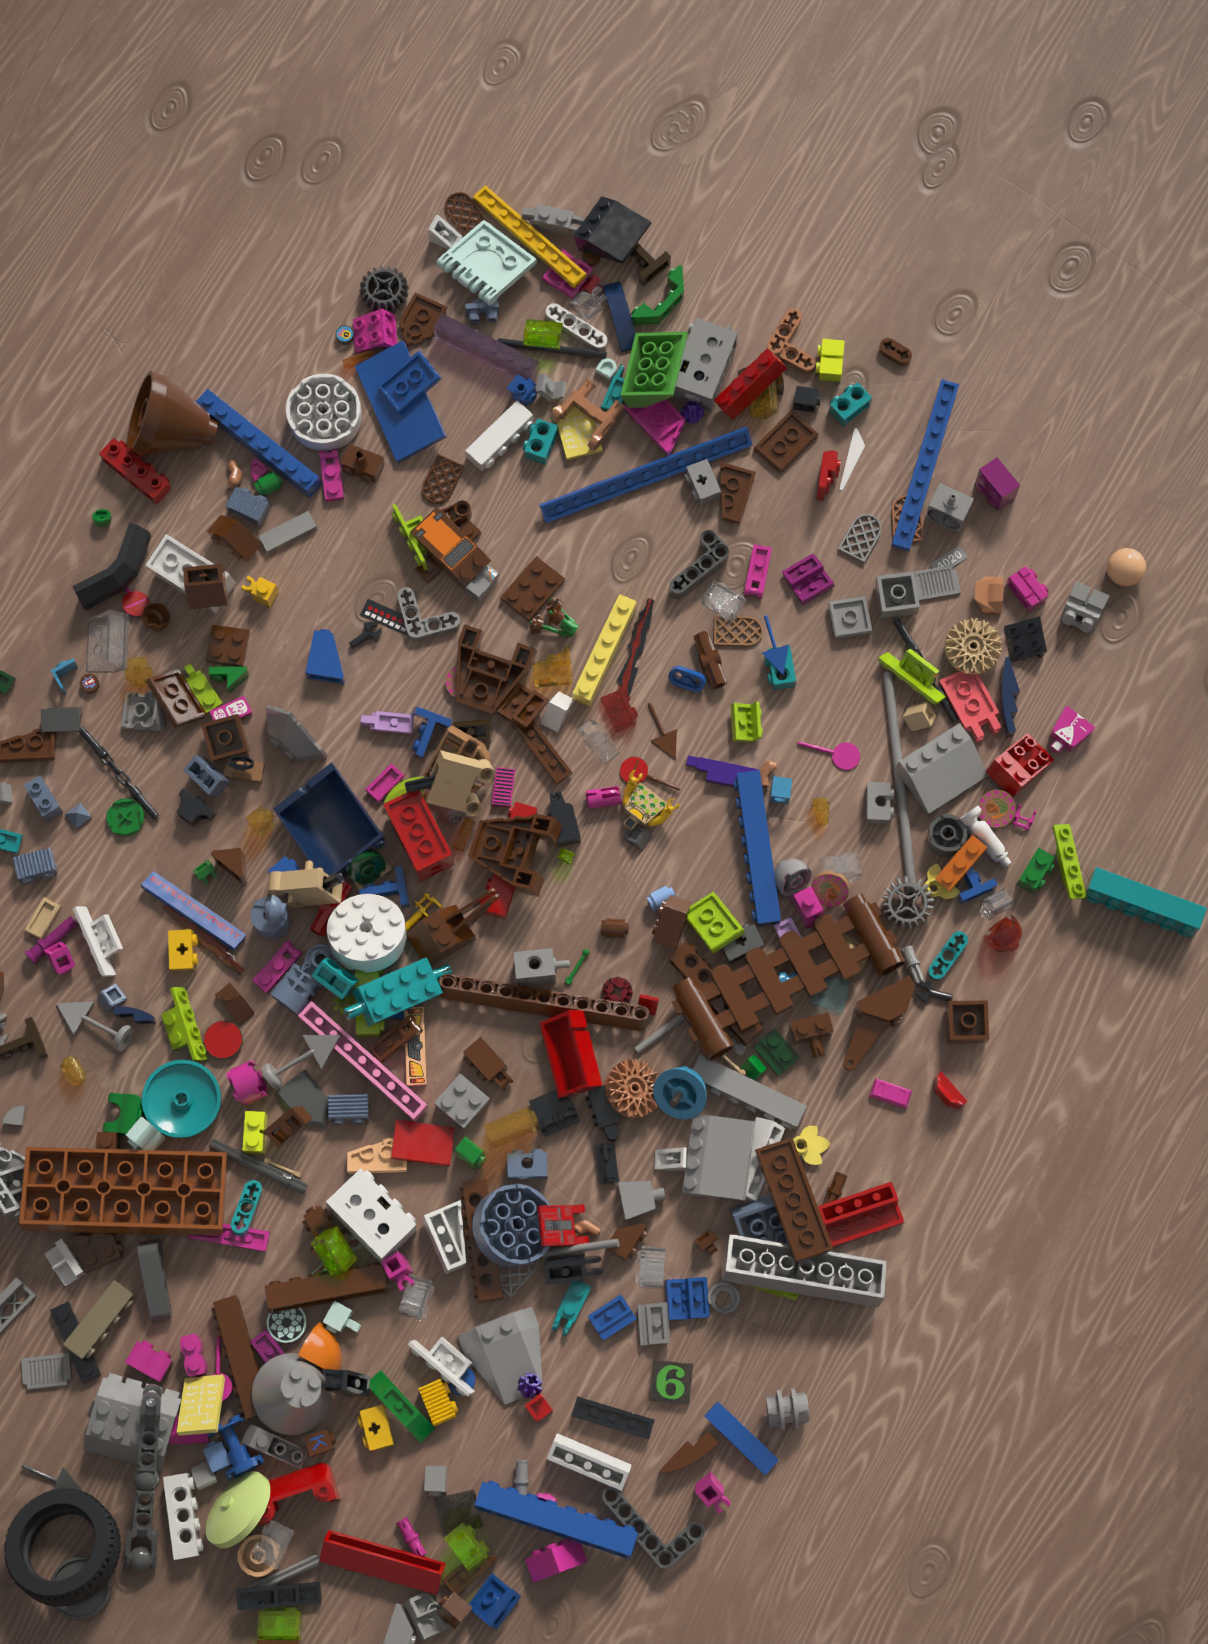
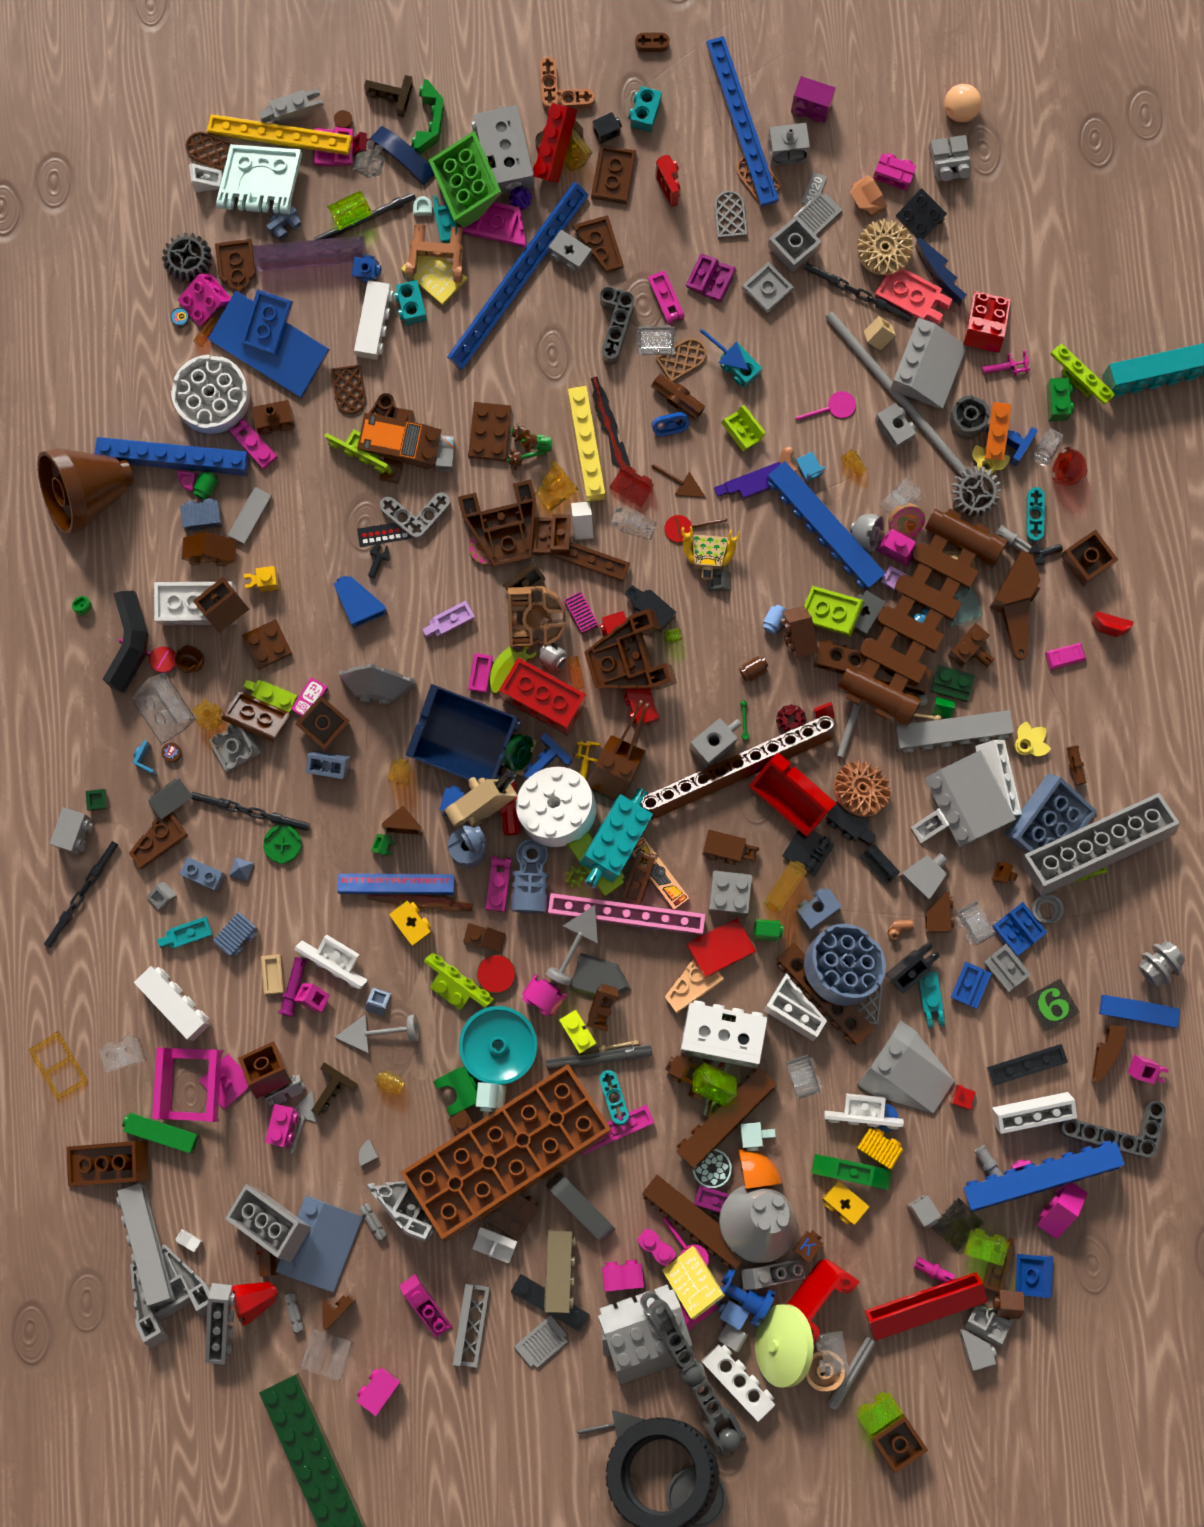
camera: 35 degrees left, 5 degrees up
(135, 471) = (82, 547): red brick -> none
(140, 1016) = (413, 1000): dark blue slope -> none
(193, 809) = (336, 799): black brick -> none
(233, 675) = (291, 665): green slope -> none
(236, 474) = (172, 496): nougat arm -> none
(244, 769) = (354, 738): medium nougat piece -> none
(279, 1595) = (862, 1390): black slope -> none
(335, 978) = (557, 861): teal brick -> none
(346, 1383) = (798, 1183): black hinge -> none
(348, 1108) = (640, 960): sand blue brick -> none
(398, 1269) = (775, 1063): dark pink brick -> none
(426, 728) = (485, 605): blue bracket -> none
(452, 782) = (544, 634): tan piece -> none
(529, 1385) = (945, 1084): dark purple gear -> none
(550, 389) = (389, 253): light grey bracket -> none
(557, 1225) = (879, 940): red flag -> none
(578, 324) = (372, 189): white beam -> none
(581, 1248) = (911, 944): light grey bar -> none
(603, 797) = (669, 567): dark pink arm -> none
(610, 230) = (347, 86): black slope -> none
(680, 1092) = (903, 767): dark azure piece -> none
(793, 1200) = (1055, 792): reddish brown tile -> none
(831, 360) = (606, 86): neon yellow piece -> none
(855, 450) = (675, 146): white sticker -> none
(861, 1214) = (1110, 769): red slope -> none
(915, 672) = (853, 298): lime bracket -> none
(984, 833) = (1000, 395): white piece -> none
(997, 808) = (993, 368): tile -> none
(1070, 731) = (1007, 267): dark pink torso -> none

